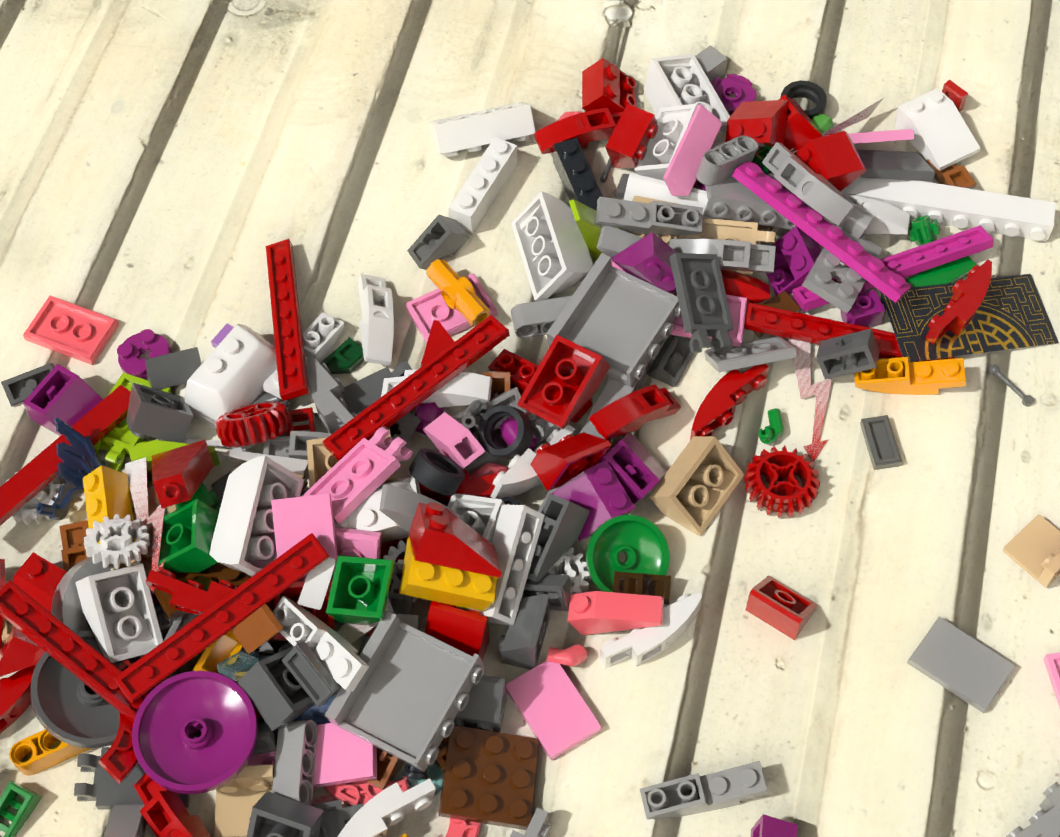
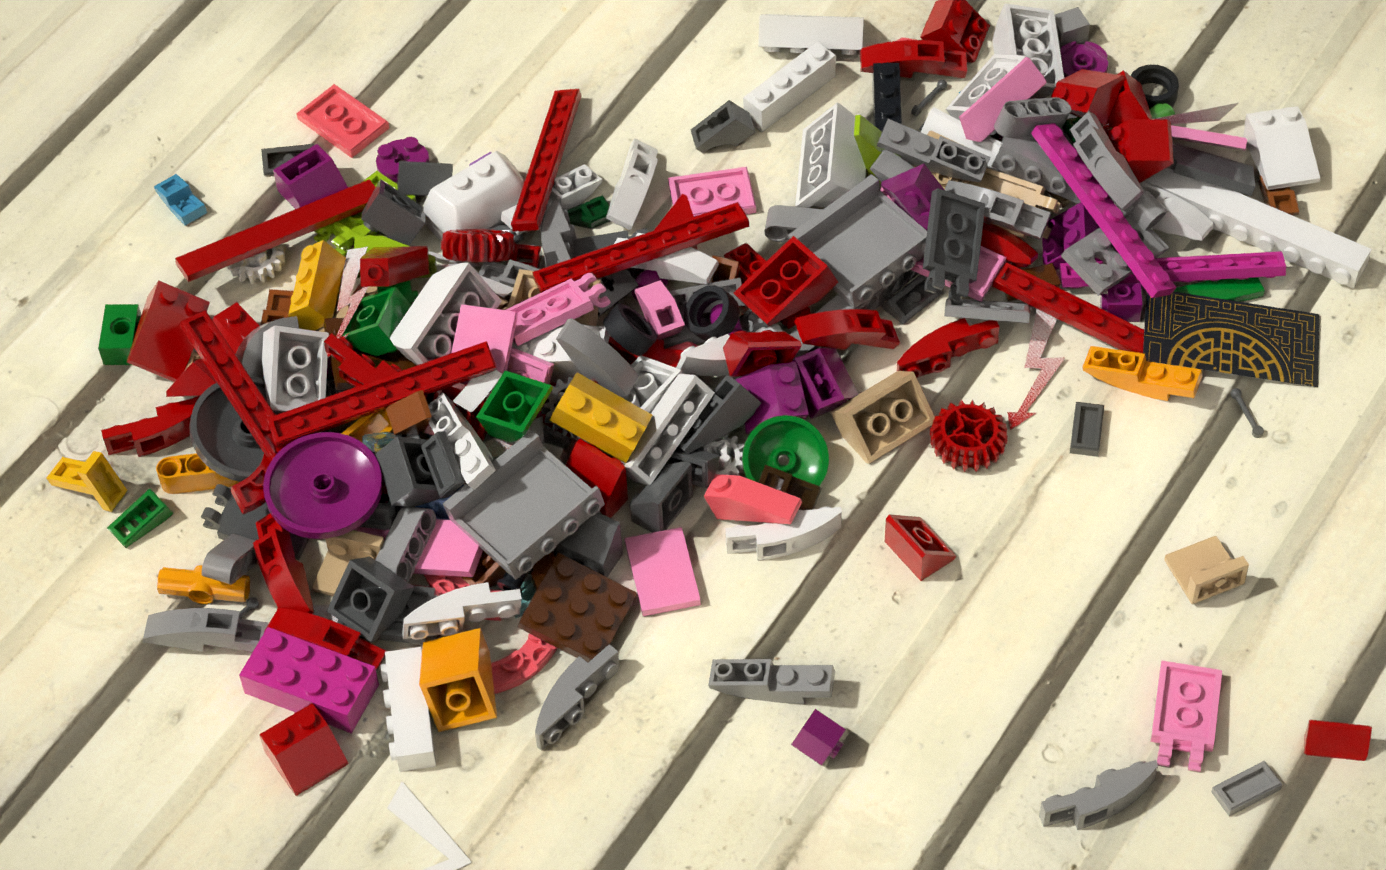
camera: 20 degrees right, 5 degrees down
(77, 462) = (302, 233): dark blue animal -> none
(116, 541) = (311, 306): white gear -> none
(448, 541) = (611, 384): red slope -> none
(457, 292) = (720, 176): light orange piece -> none
(469, 415) = (684, 287): dark grey arm -> none
(570, 656) = (695, 530): coral arm -> none
(631, 137) = (951, 74): red slope -> none
(774, 430) = (983, 389): green arm -> none
(848, 354) = (1084, 335): dark grey brick -> none
(923, 230) = (1221, 241): green gear -> none
(955, 94) = (1317, 121): red tile -> none
(961, 664) = (1073, 646): light grey tile -> none
(963, 303) = (1232, 319): red slope -> none

